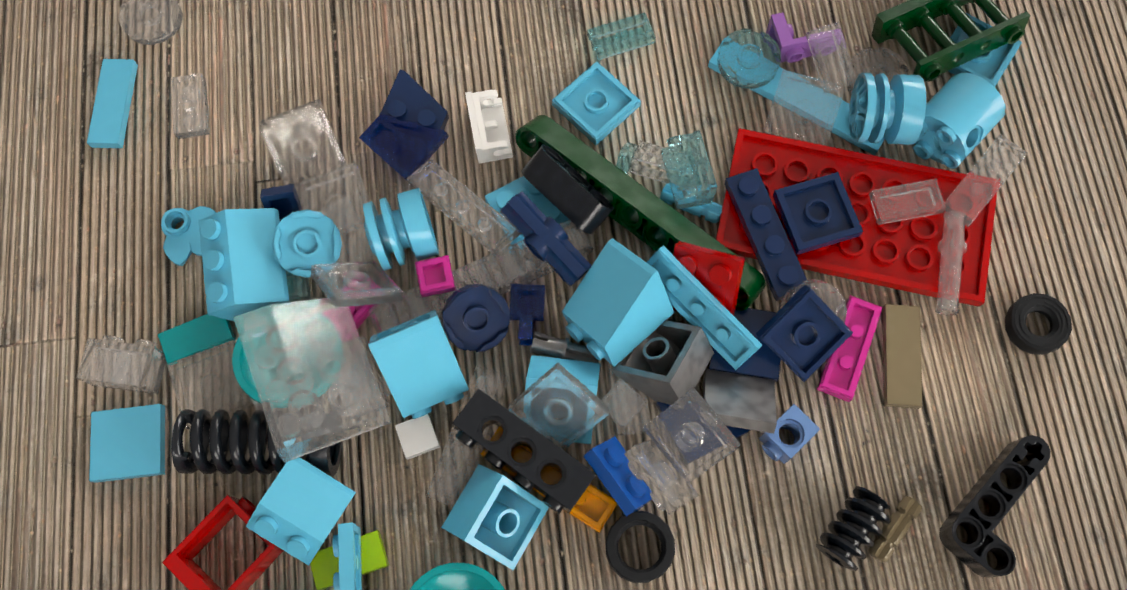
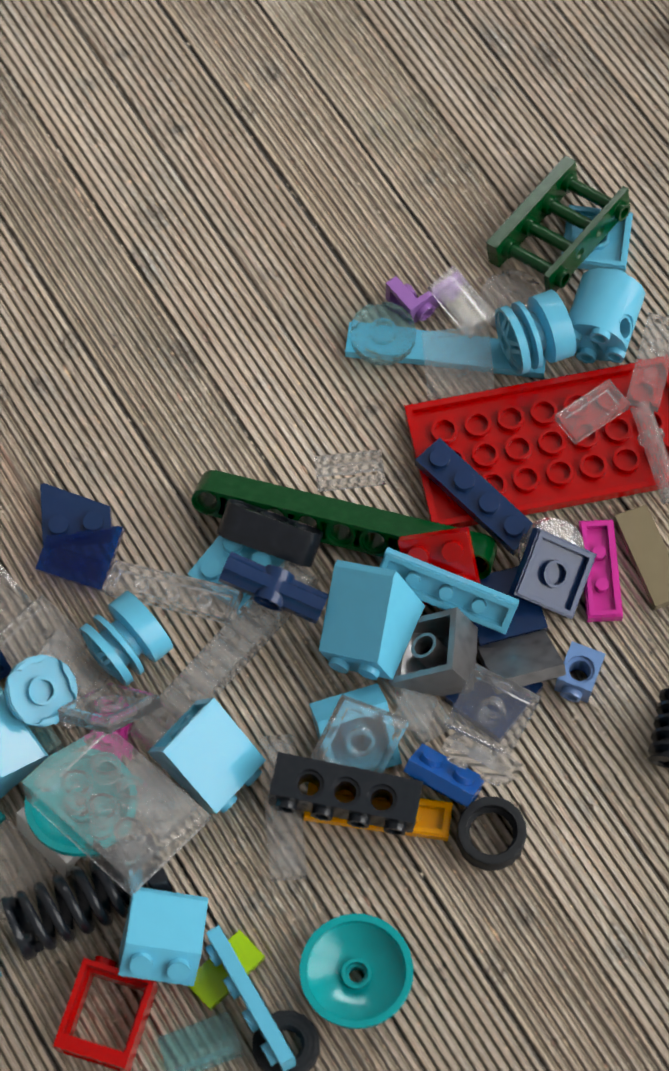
camera: 25 degrees left, 5 degrees down
(417, 436) = (234, 828): white tile -> none
(435, 276) = (182, 668): dark pink tile -> none
(476, 318) = (241, 689): dark blue tile -> none
(488, 126) = (157, 504): white hinge -> none
(495, 516) = (345, 865): medium azure slope -> none
(527, 306) = (282, 662): clear blue plate -> none
(560, 348) = (328, 687): flat silver axle -> none
(596, 103) = (252, 437): medium azure tile -> none
(624, 40) = (255, 368): clear light blue tile -> none
(626, 157) = (309, 477): clear light blue tile -> none
(689, 170) = (376, 466): clear light blue hinge -> none
(711, 211) = (391, 496): medium azure axle -> none
(817, 213) = (514, 457): dark blue plate -> none

